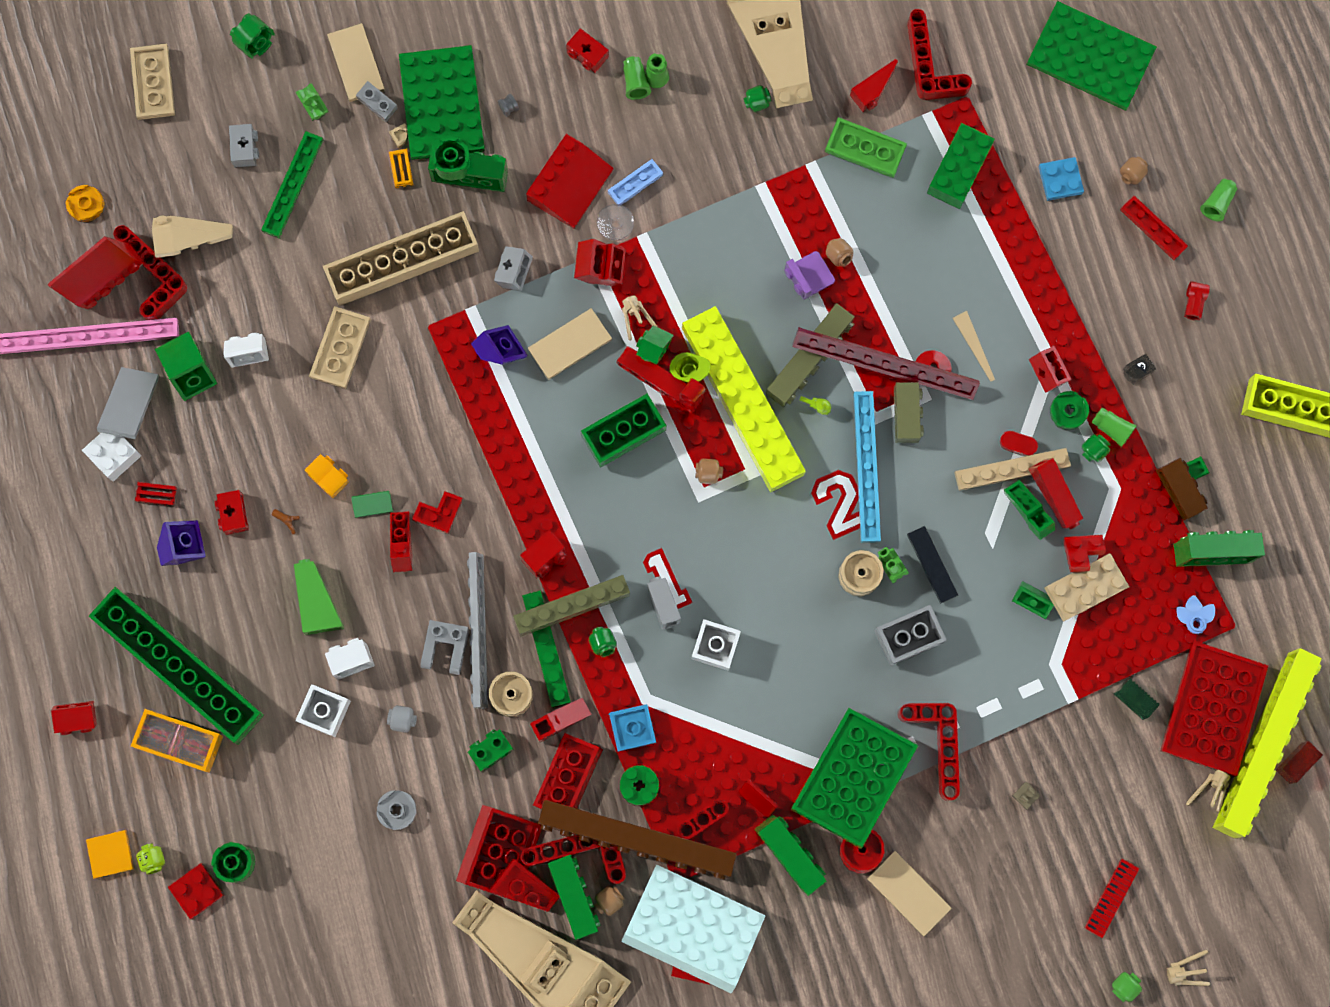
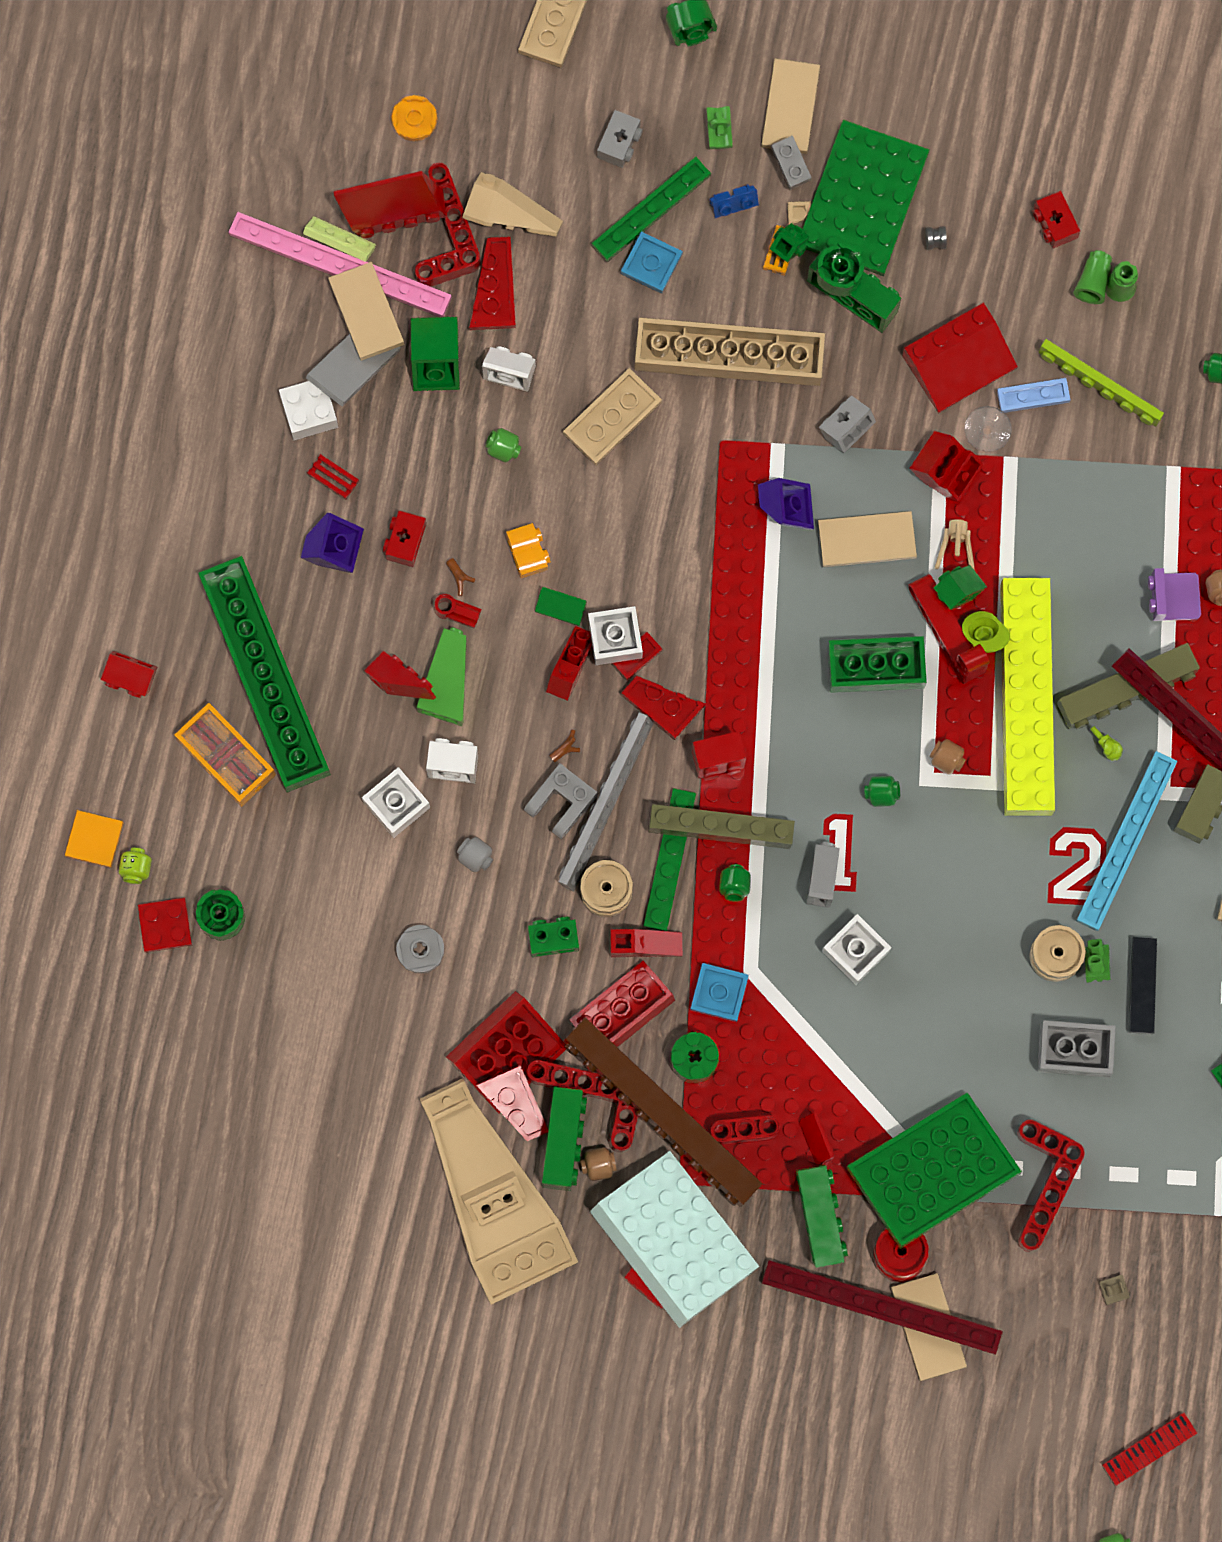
camera: 30 degrees right, 0 degrees up
(74, 317) = (339, 239): none -> yellowish green tile
(118, 360) = (366, 311): none -> tan tile
(208, 300) = (495, 293): none -> red wing
(270, 408) = (503, 445): none -> bright green head
(277, 620) = (397, 680): none -> red slope
(300, 546) = (459, 612): none -> red piece
(312, 222) = (651, 262): none -> dark azure plate
(354, 145) = (743, 198): none -> blue hinge
(404, 158) = (789, 242): none -> green brick
(423, 505) = (615, 635): none -> white brick
(428, 606) = (565, 748): none -> dark orange bar
(484, 539) = (664, 707): none -> red wing
(672, 150) = (1108, 388): none -> lime plate
(675, 520) = (882, 791): none -> green head
(869, 897) = (882, 1307): none -> dark red plate

